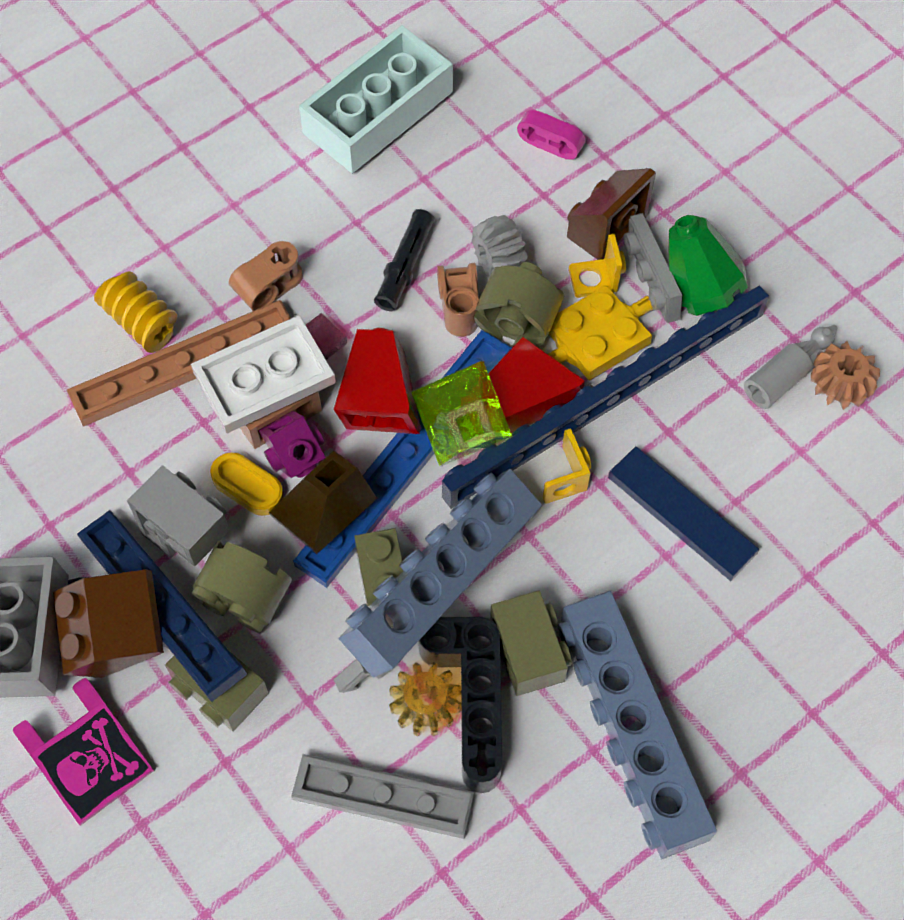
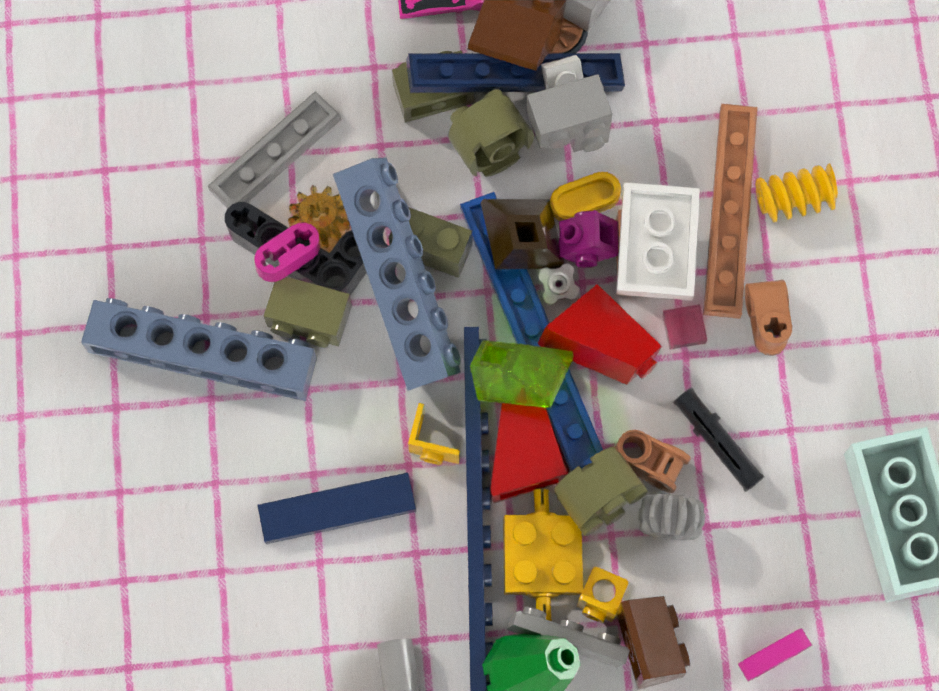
camera: 125 degrees right, 10 degrees up
(142, 549) = (562, 71): none -> white plate
(350, 442) = (551, 291): none -> white plate
(494, 674) = (287, 252): none -> dark pink beam

